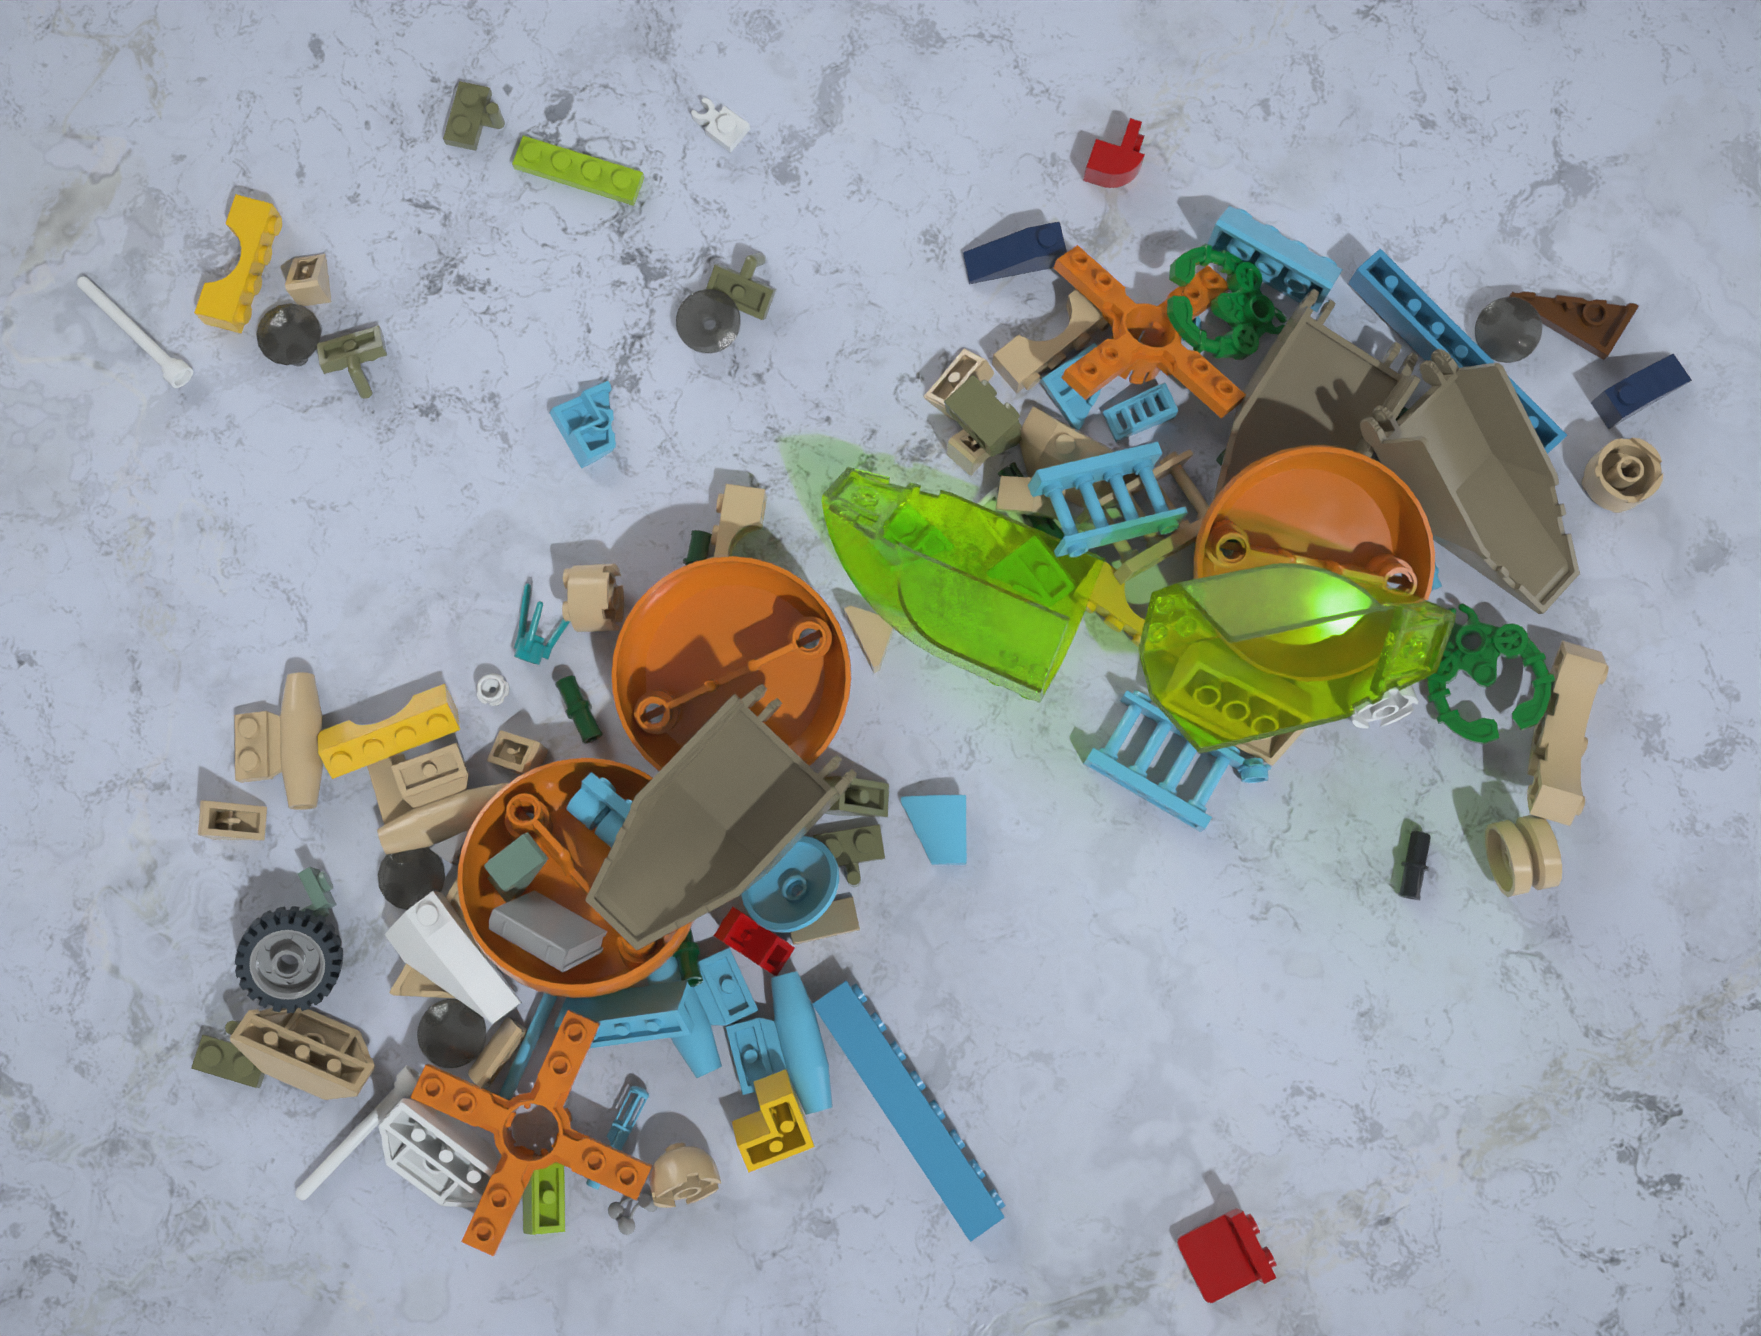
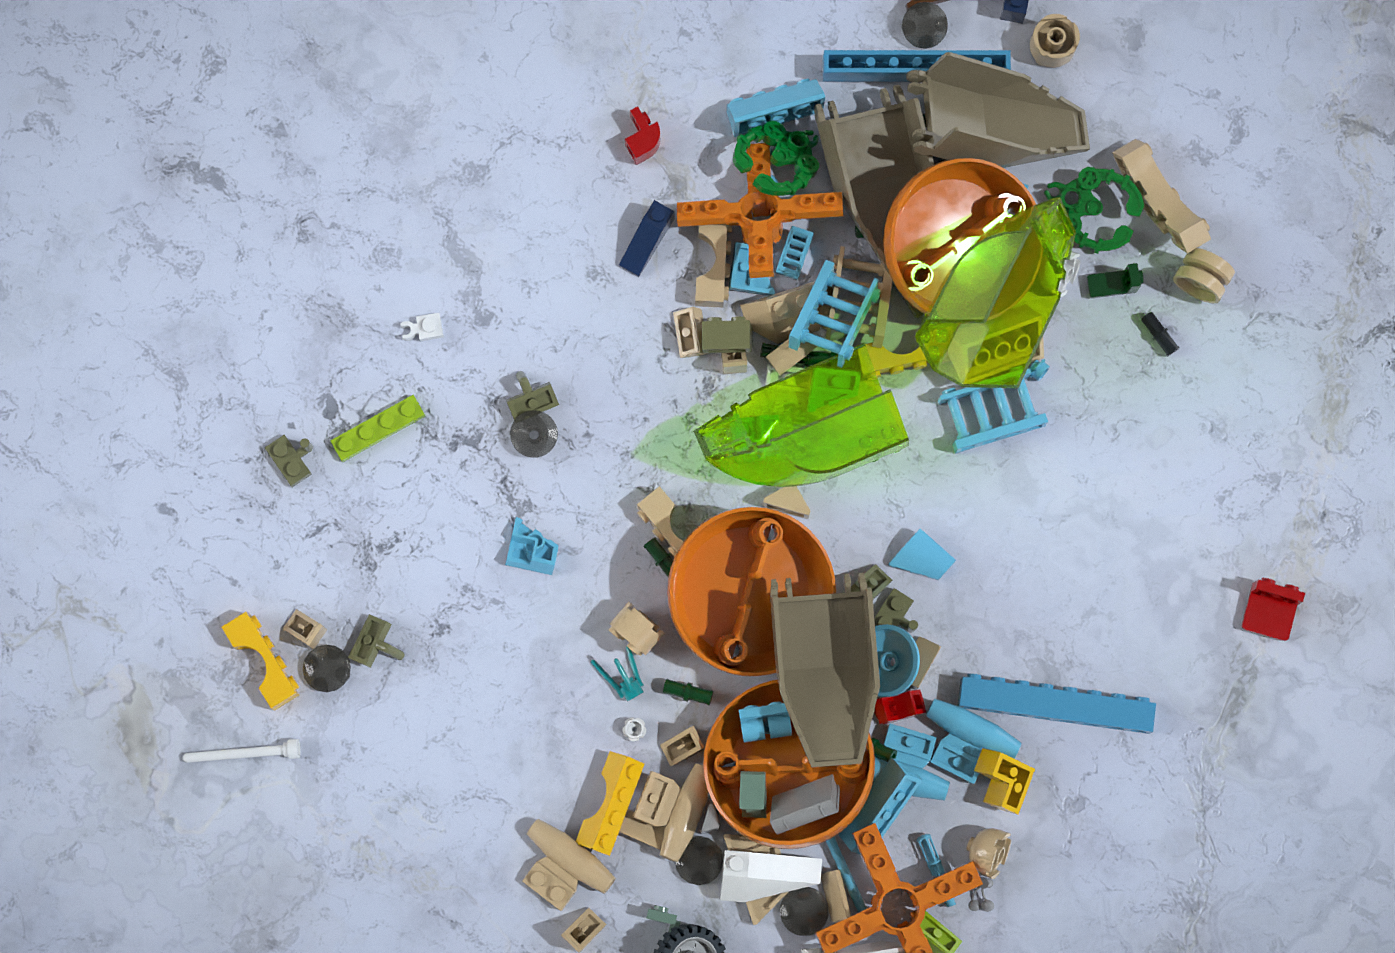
camera: 50 degrees left, 0 degrees up
(1425, 768) = (1115, 282): none -> dark green bracket

